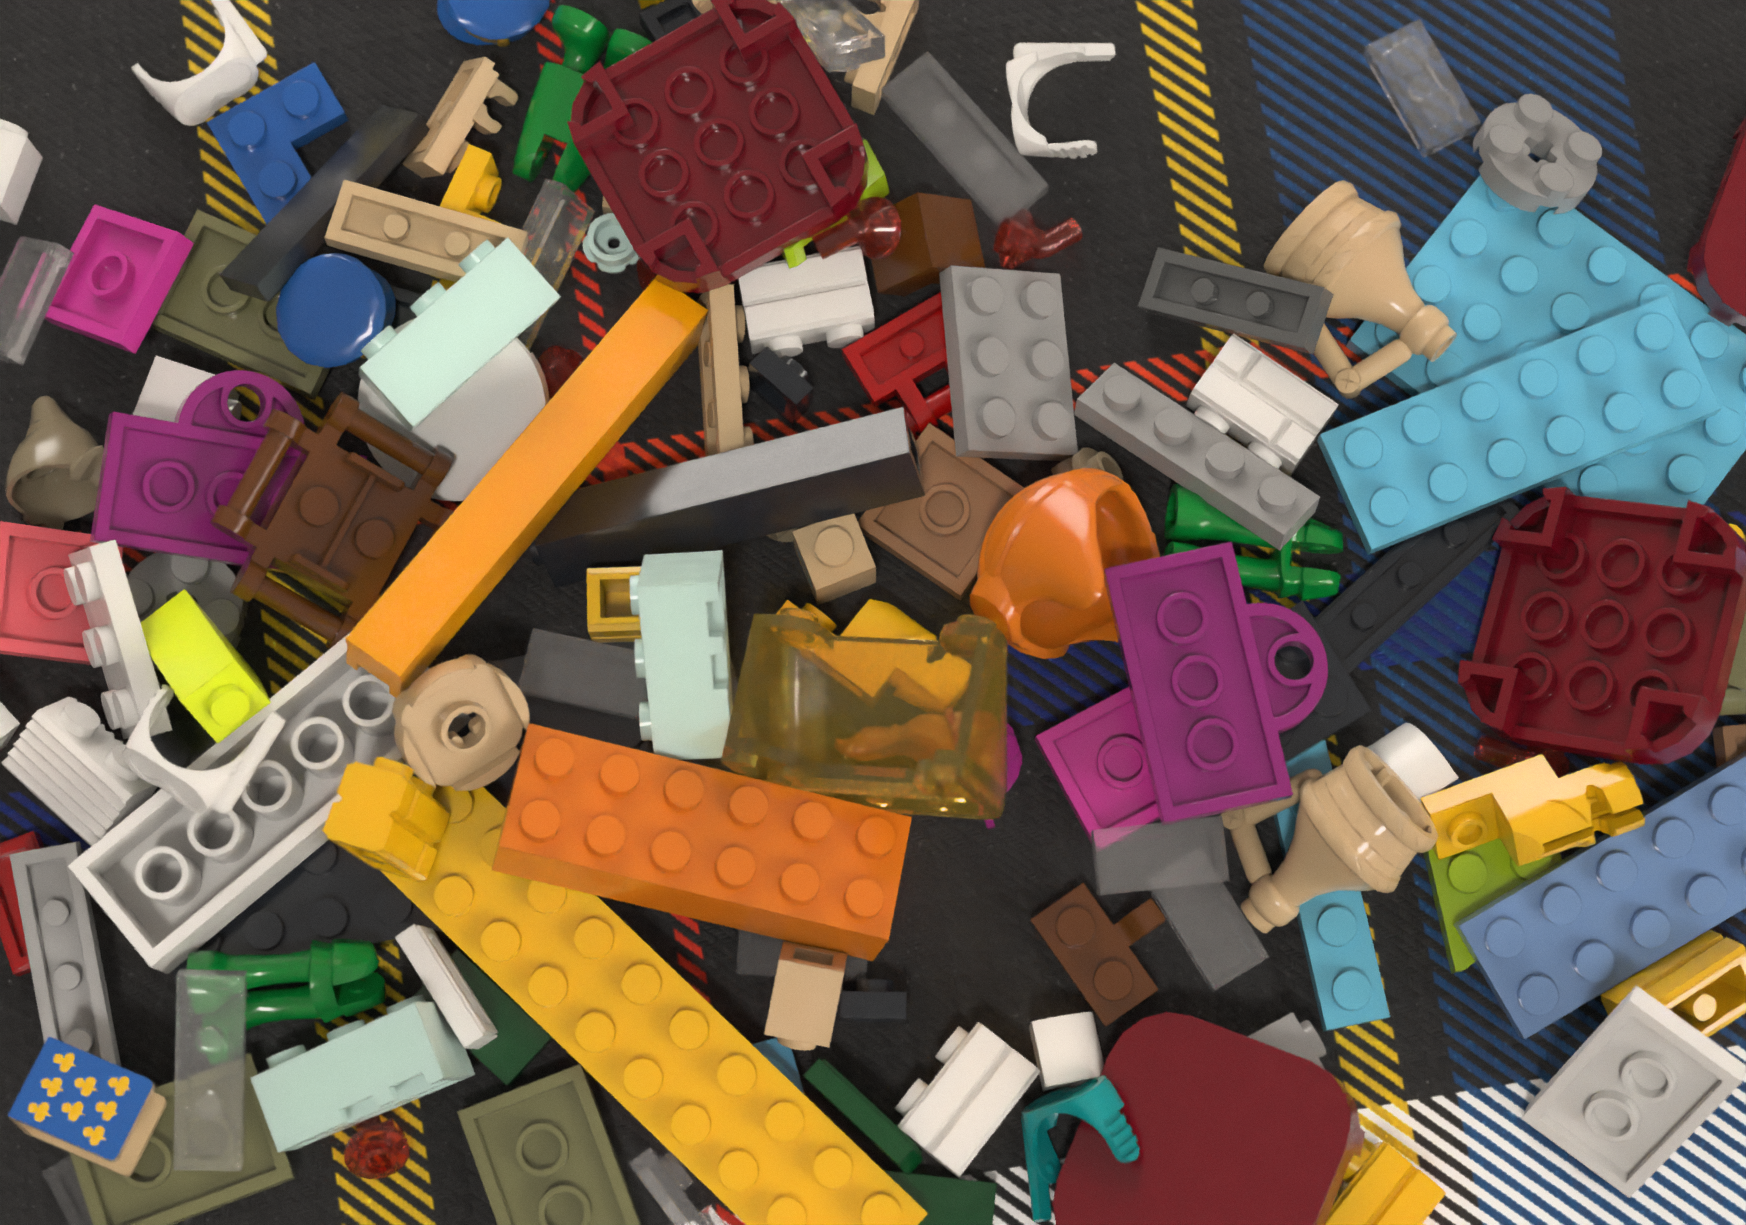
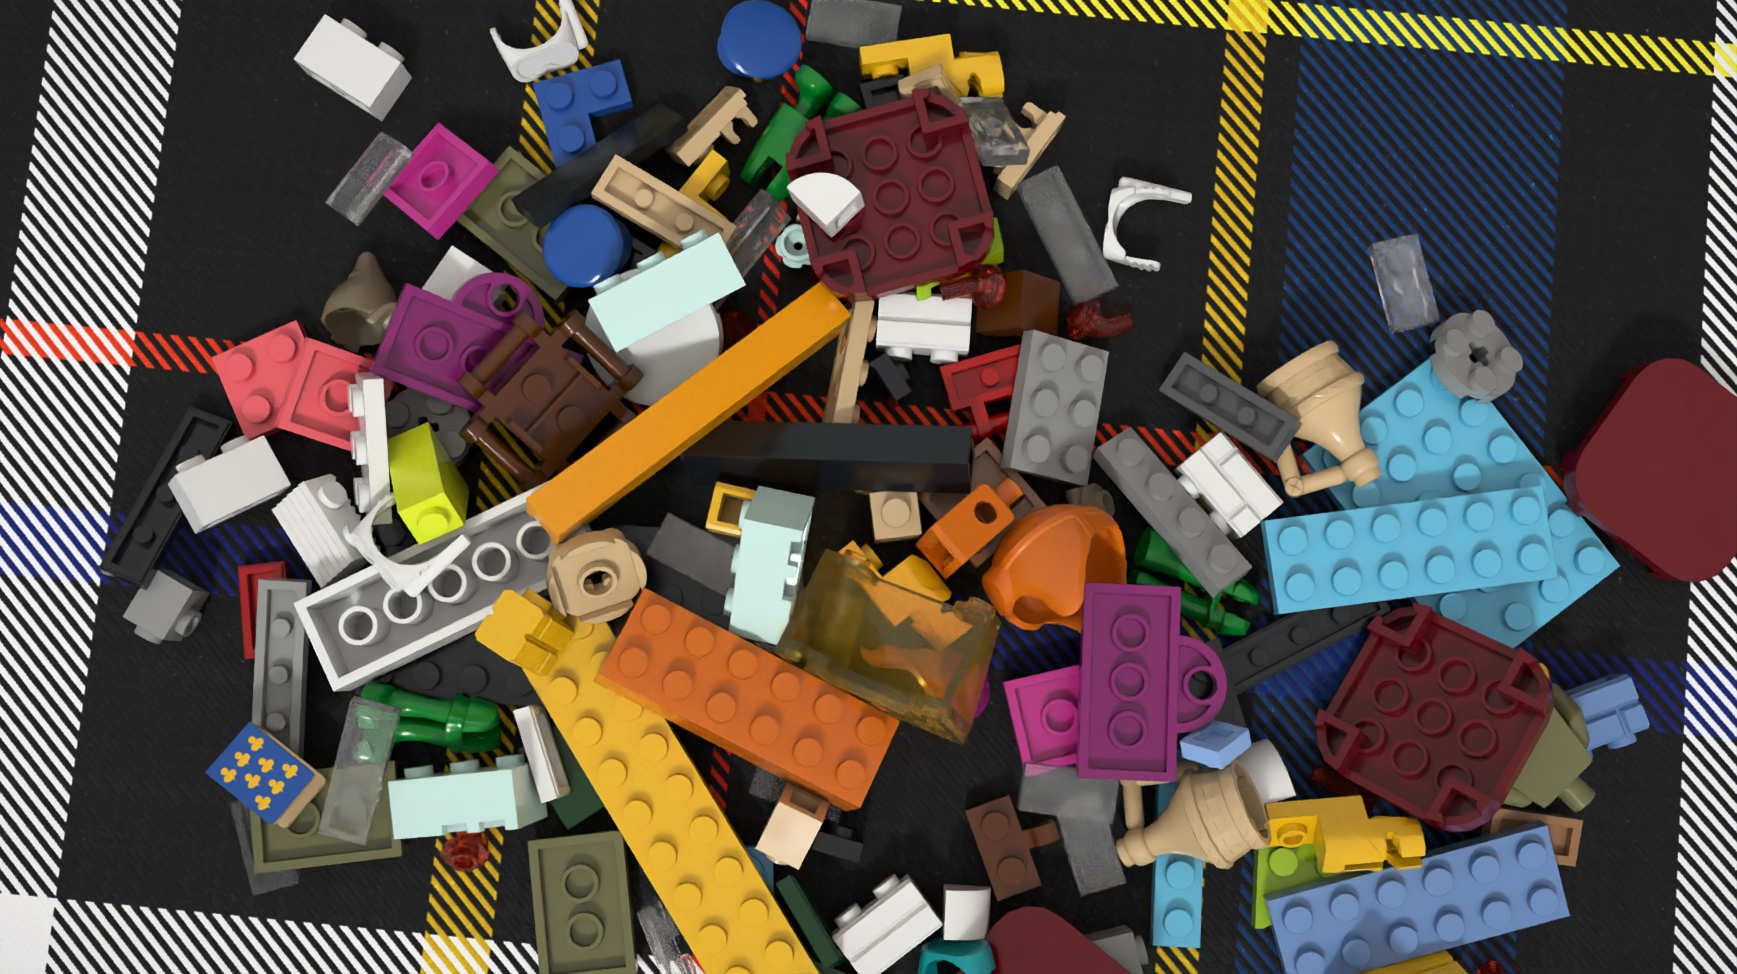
camera: 10 degrees right, 5 degrees up
(636, 166) = (827, 200): none -> white brick
(934, 540) = (961, 534): none -> orange torso
(1331, 731) = (1216, 744): none -> light blue plate

